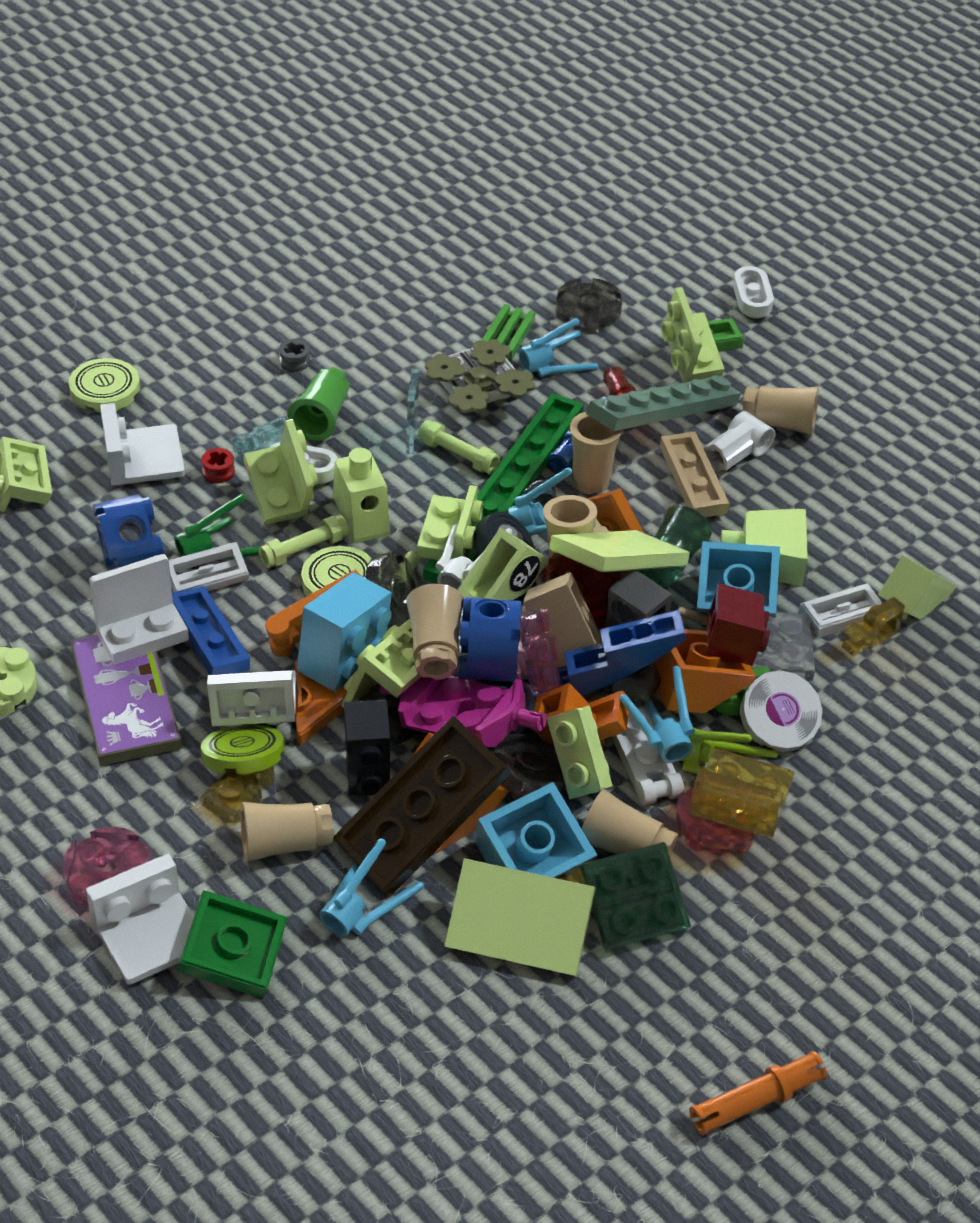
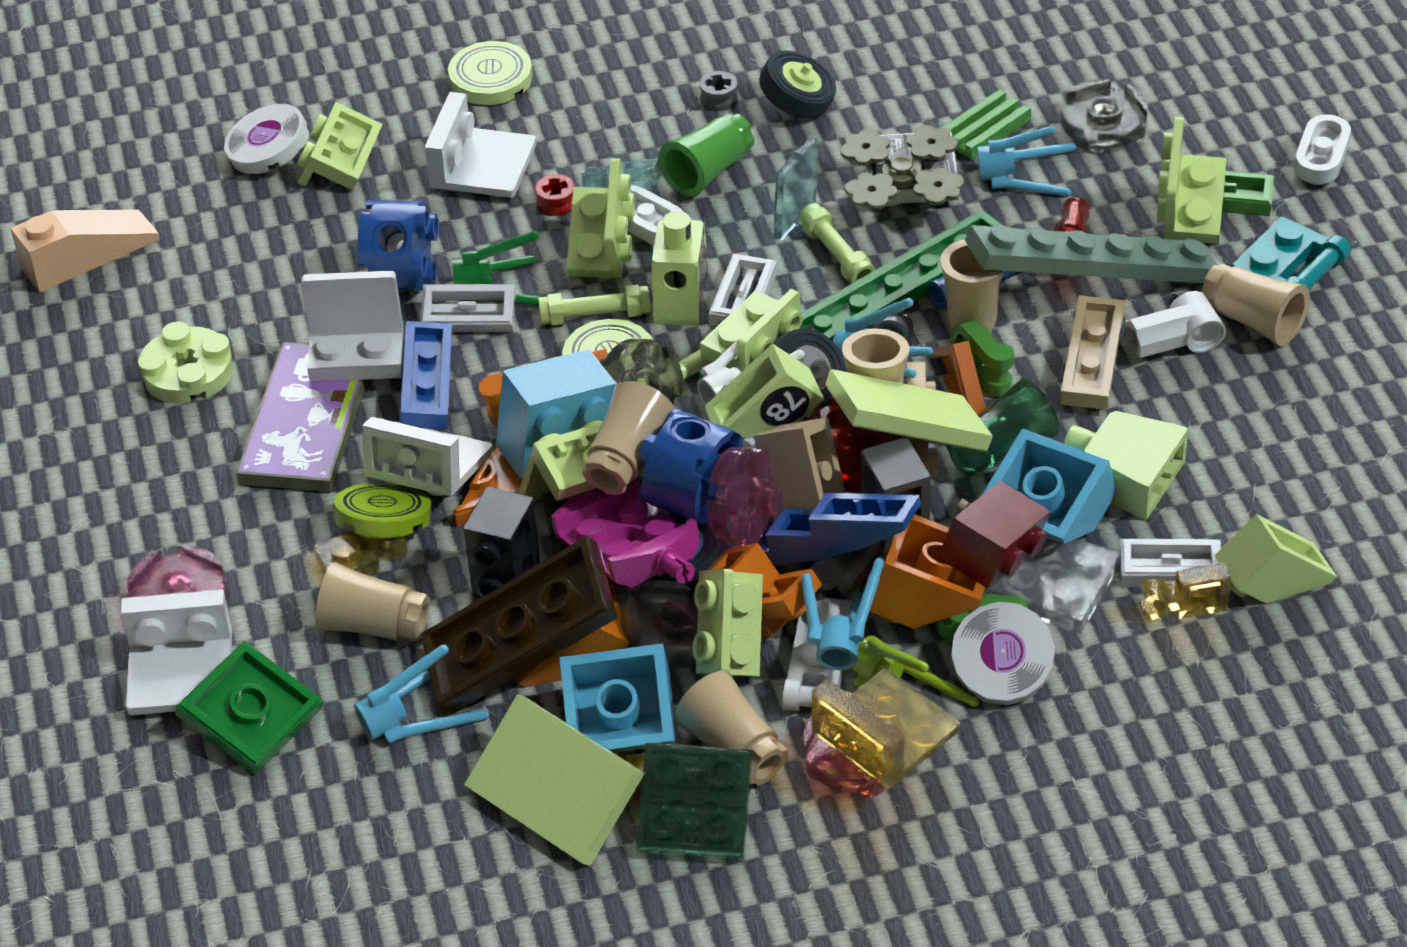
camera: 30 degrees right, 0 degrees up
(356, 335) = (797, 84): none -> black wheel
(413, 519) = (718, 309): none -> white tile
(637, 495) = (990, 358): none -> bright green plate
(771, 366) = (1287, 247): none -> teal plate

